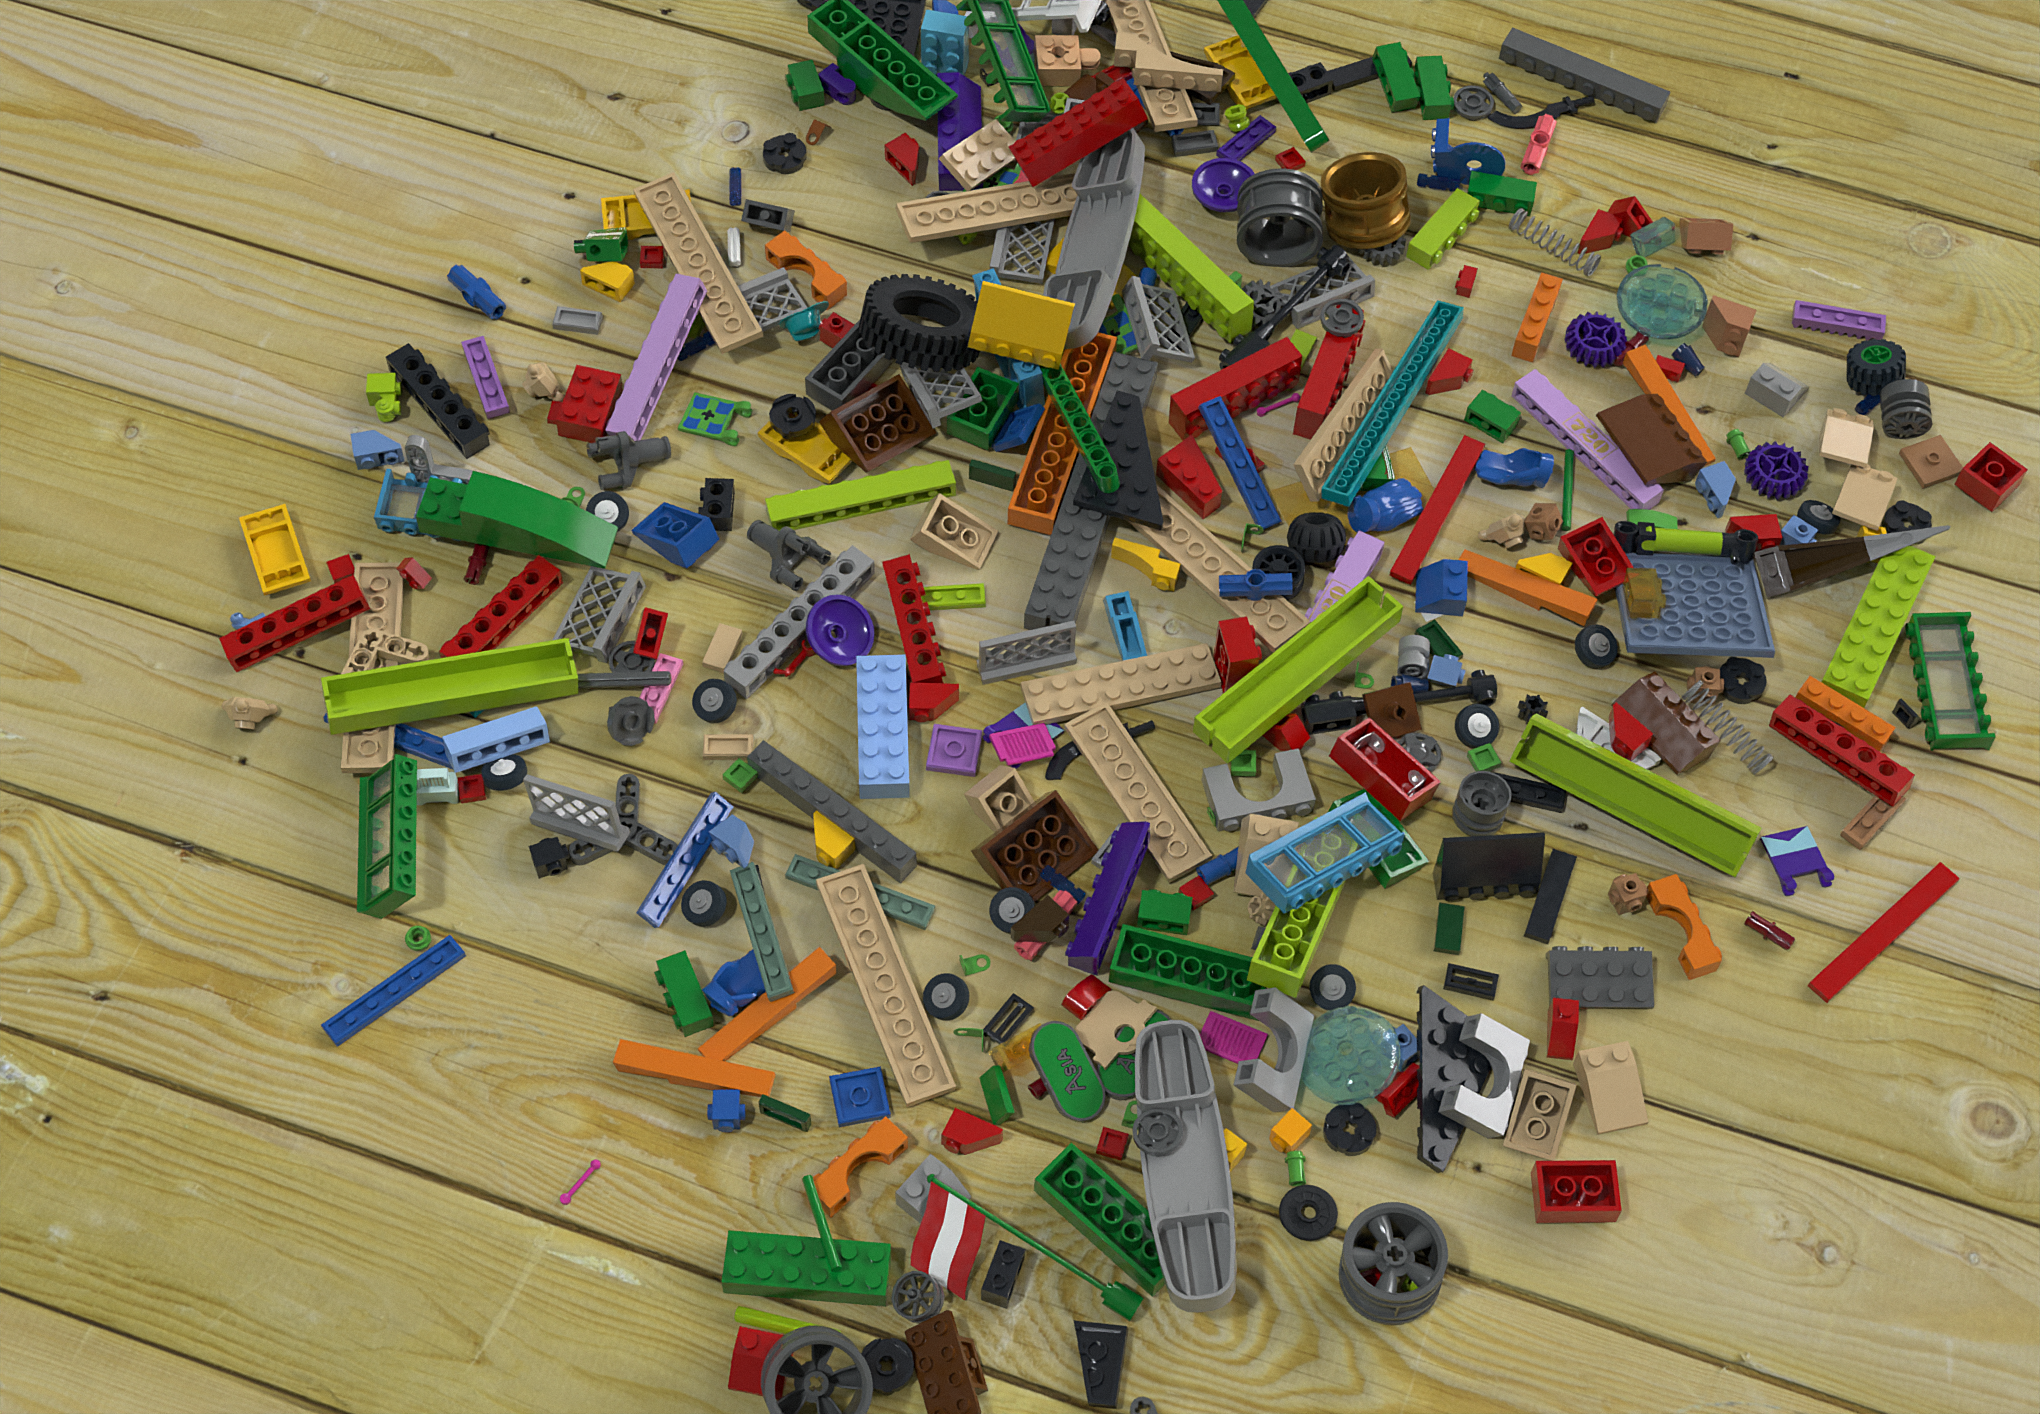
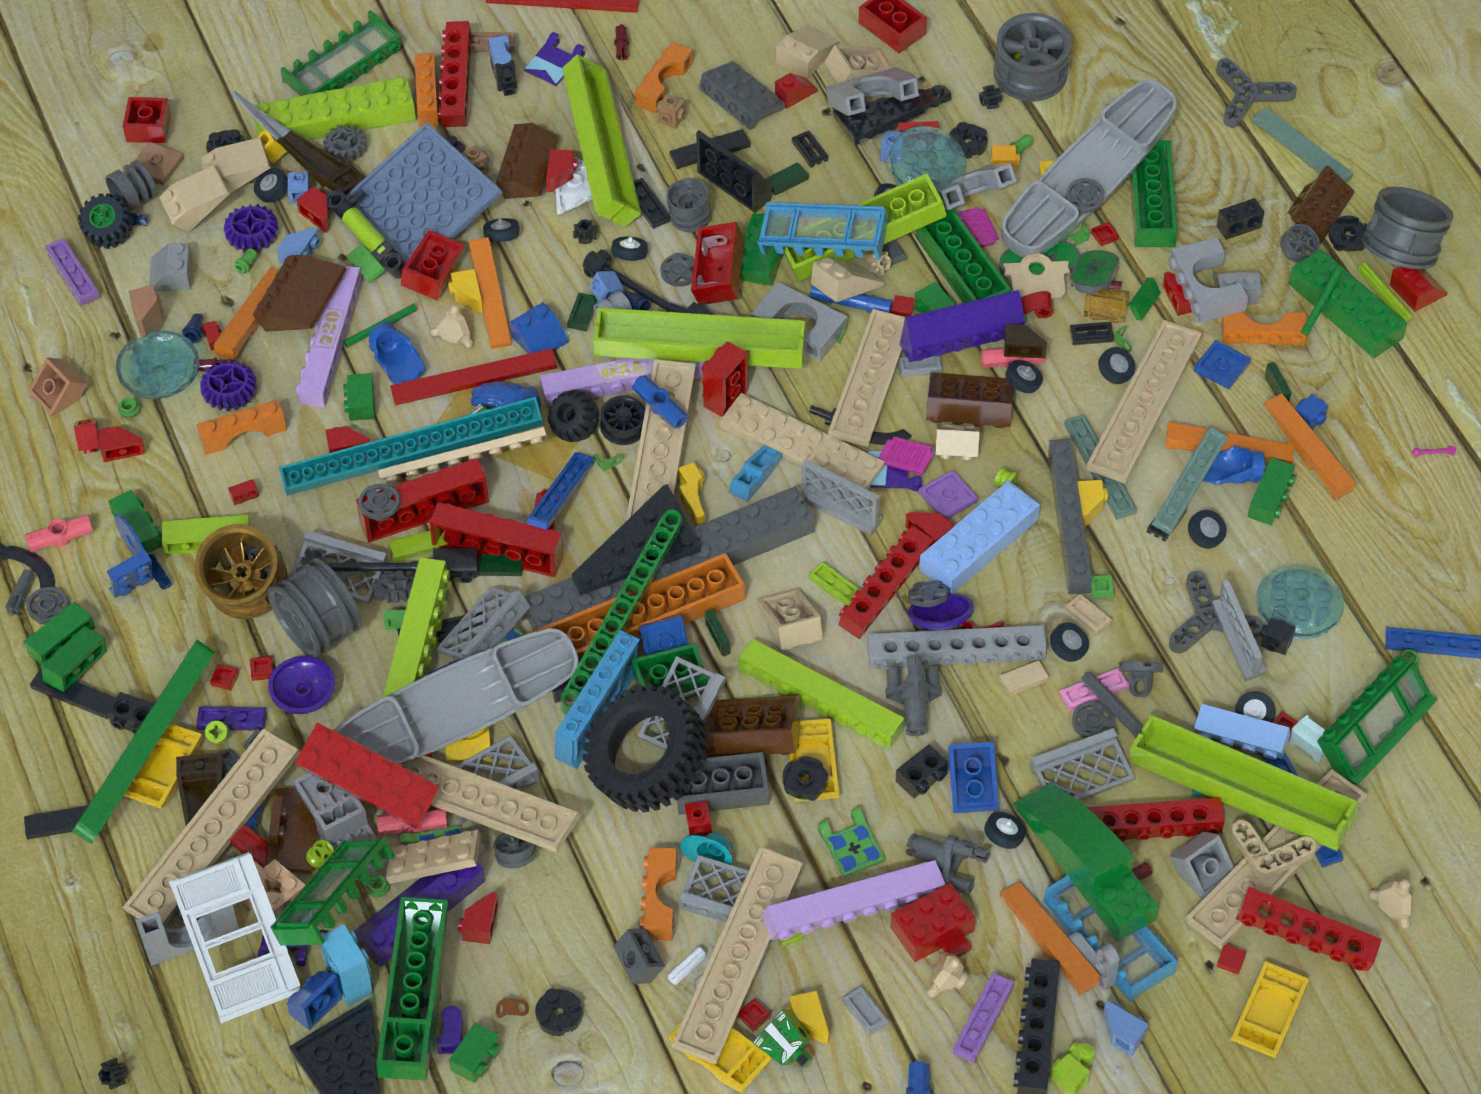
camera: 130 degrees left, 5 degrees down
(239, 622) = (1338, 974): medium blue arm -> none
(413, 573) = (1187, 900): red piece -> none
(430, 614) = (1202, 863): none -> light grey slope
(516, 471) = (1051, 939): none -> orange slope
(568, 936) = (1314, 612): none -> clear light blue brick
(575, 500) = (1015, 870): bright green piece -> none
(650, 633) = (1066, 716): red slope -> none
(683, 860) = (1190, 565): tile -> none
(733, 840) = (1150, 543): medium blue slope -> none
(735, 186) = (627, 1017): clear blue axle -> none
(870, 641) = (928, 594): none -> dark grey wheel
(920, 800) = (1004, 475): none -> lime wheel
(927, 1117) = (1205, 301): none -> light grey arch
(952, 1237) = (1243, 251): flag -> none
(970, 965) = (1079, 379): bright green piece -> none
(1020, 325) = (613, 643): yellow slope -> none
(1061, 883) = (977, 366): clear blue axle -> none
(1102, 1360) = (1229, 149): black wing -> none
(1161, 70) = (236, 795): tan arch -> none
(1190, 477) = (594, 519): red wedge -> none
(1312, 1197) = (1050, 124): black wheel -> none
(1384, 1191) = (990, 97): none -> black gear
(1393, 709) = (667, 290): reddish brown tile -> none
(1484, 758) = (649, 232): bright green plate -> none
(1543, 521) = (426, 304): medium nougat brick -> none
(1590, 261) = (154, 433): light grey piece -> none
(1643, 593) = (446, 211): clear yellow brick -> none
(1653, 237) = (91, 410): clear light blue slope -> none
(1768, 757) = (500, 114): light grey piece -> none
(1816, 792) = (502, 65): none -> hips
(1838, 609) = (345, 142): none -> dark grey gear
(1906, 714) = (388, 67): black slope -> none

